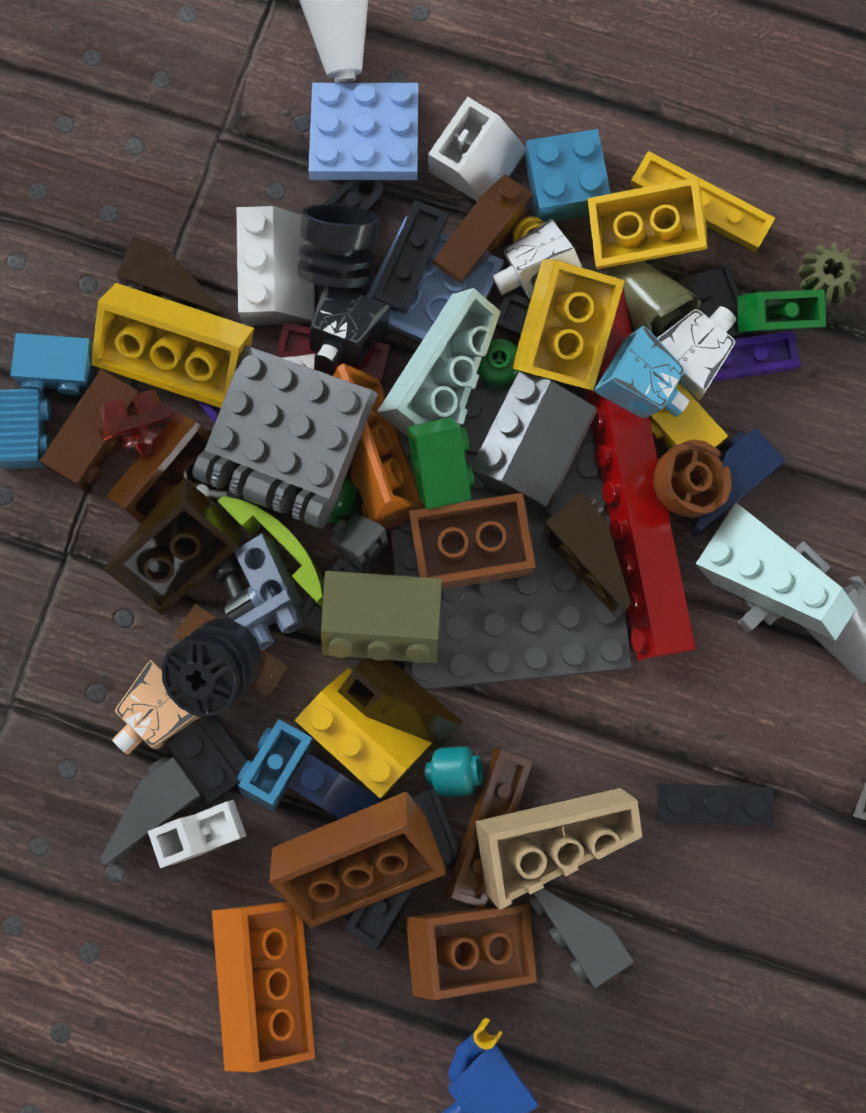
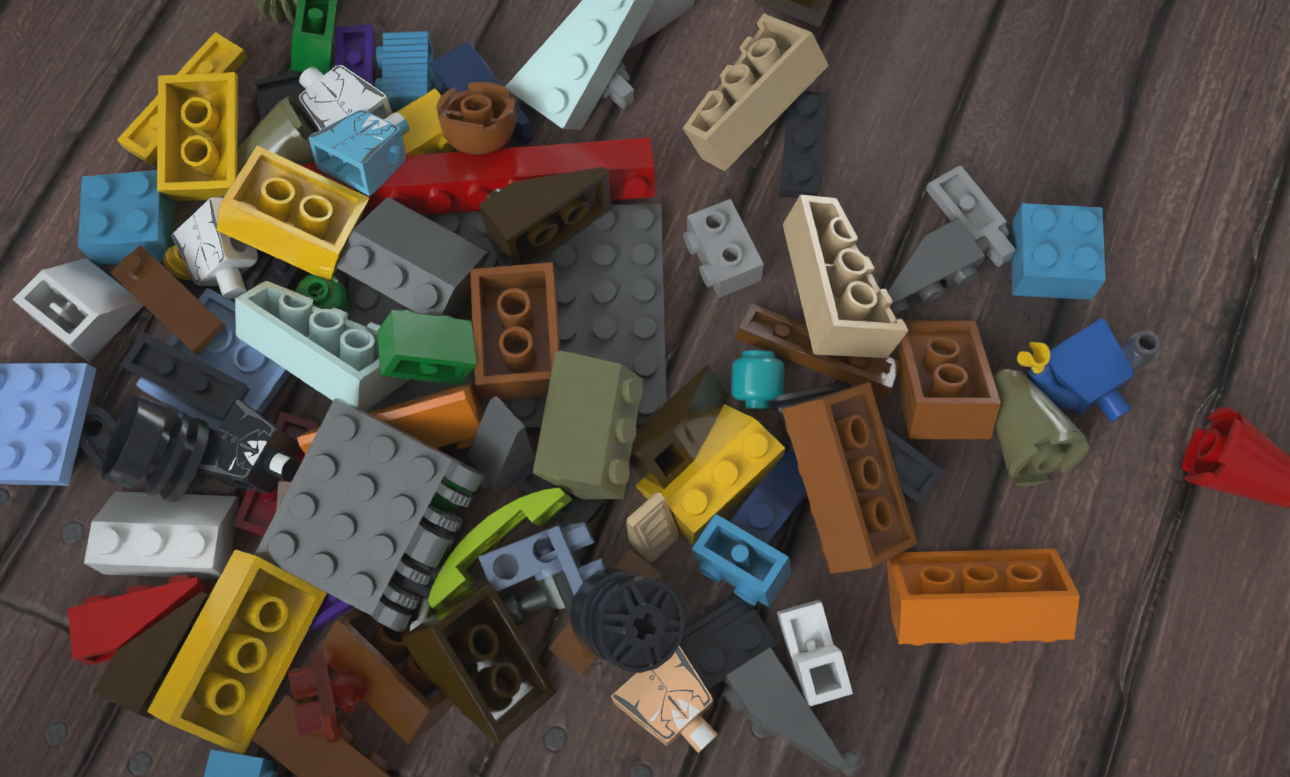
camera: 85 degrees left, 10 degrees down
(192, 244) = (109, 623): none -> red slope
(299, 683) = (652, 528): none -> tan slope
(422, 1033) = (1034, 431): none -> olive cone
(587, 730) = (723, 248): none -> light grey brick
(612, 1064) = (1057, 251): none -> dark azure brick
(650, 977) = (963, 199): none -> light grey hinge
(752, 404) = (404, 67): none -> dark azure brick
(759, 750) = (755, 90): none -> tan wedge

